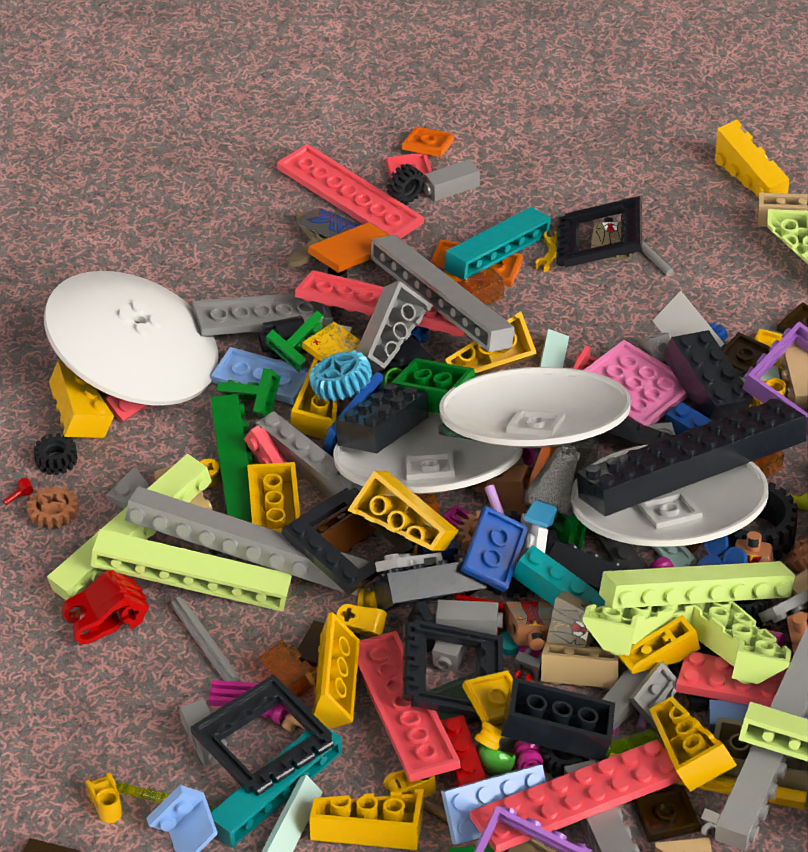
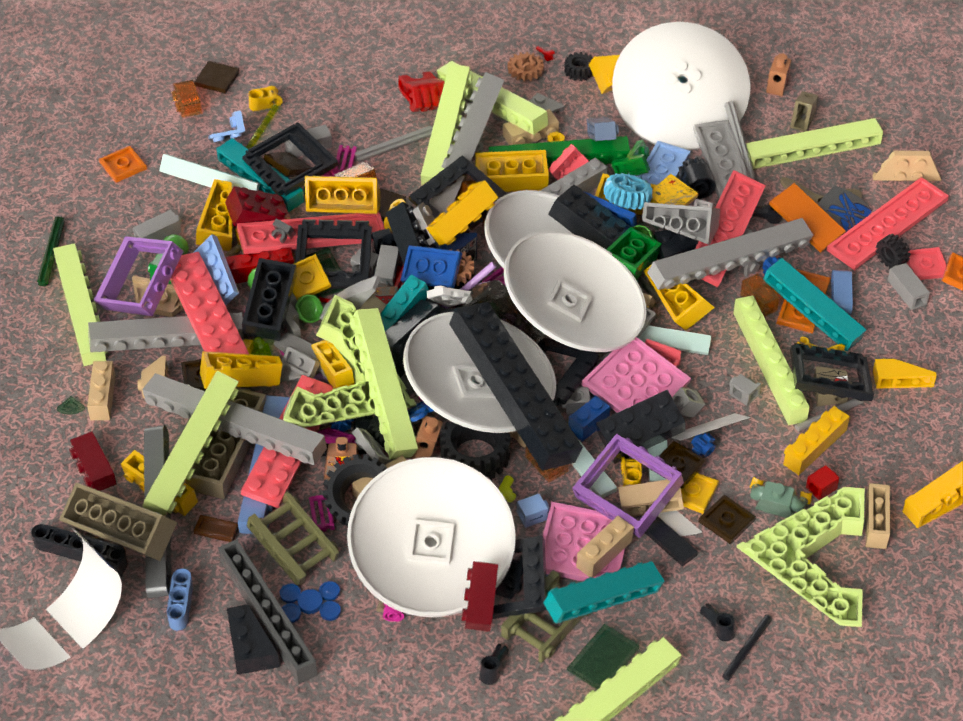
camera: 90 degrees right, 5 degrees up
(92, 258) = (780, 66): none -> nougat torso
(160, 246) = (804, 105): none -> dark tan torso
(197, 294) = (739, 137): none -> light grey axle
(202, 416) = (602, 128): none -> sand blue brick
(215, 242) = (814, 143): none -> yellowish green brick
(260, 748) = (286, 163): none -> dark brown tile
(267, 168) = (908, 167): none -> tan wing
(288, 348) = (673, 166): green bracket -> none
(371, 761) = (254, 206): none -> dark red brick
(423, 718) = (284, 229): none -> dark grey tile
(460, 227) = (842, 289): none -> medium blue beam
(541, 514) = (459, 291): dark azure slope -> none
(556, 627) = (356, 293): none -> light grey slope
(577, 283) = (770, 360): none -> yellowish green brick
(585, 191) = (899, 374): none -> yellow slope
(625, 306) = (744, 389): none -> light grey brick
(692, 252) = (815, 440): none -> yellow brick
(749, 251) = (822, 482): none -> red brick
(784, 280) = (778, 498): none -> sand green torso

